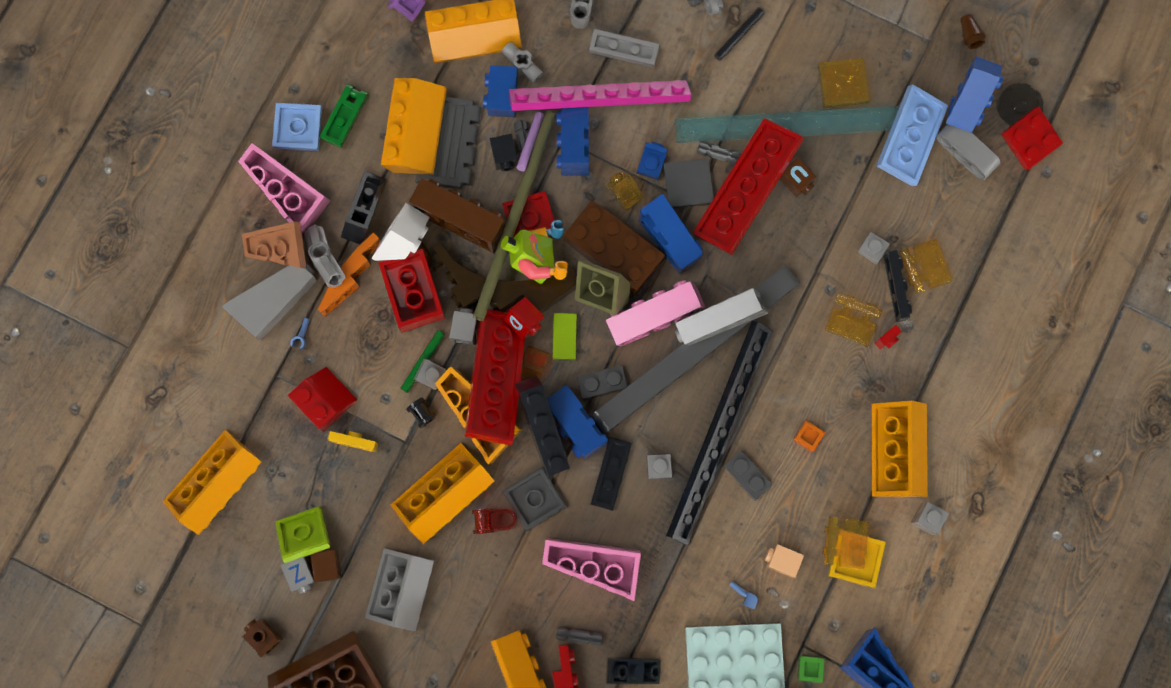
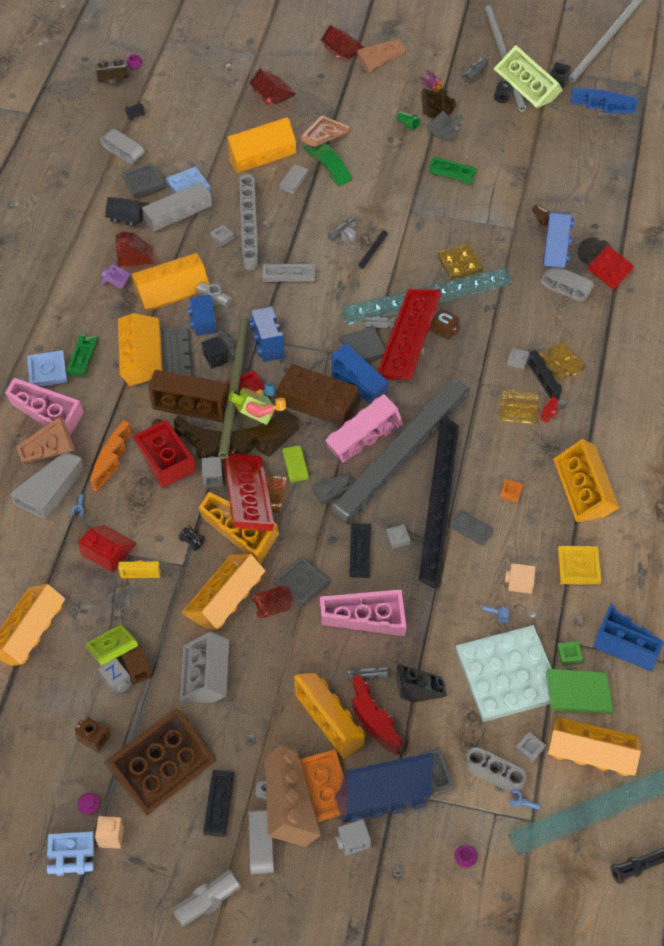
camera: 10 degrees left, 25 degrees down
(322, 257) = (86, 444): light grey piece -> none
(363, 208) = (111, 410): black slope -> none
(402, 235) = (148, 411): white slope -> none
(427, 353) = (183, 505): green bar -> none
(429, 374) = (191, 510): light grey plate -> none
(524, 318) = (259, 451): red brick -> none
(530, 141) = (233, 340): lavender bar -> none
(542, 426) = (294, 516): black brick -> none
(575, 423) = (322, 517): blue wedge -> none
(599, 95) = (272, 300): dark pink plate -> none
(601, 288) = (315, 413): olive slope -> none
(624, 189) = (315, 357): clear yellow bracket -> none
(652, 160) = (331, 335): blue bracket -> none
(721, 317) = (417, 413): slope -> none
(853, 543) = (572, 552): clear yellow plate -> none
(912, 135) = (522, 281): light blue plate -> none
(929, 518) = (626, 522): light grey brick -> none

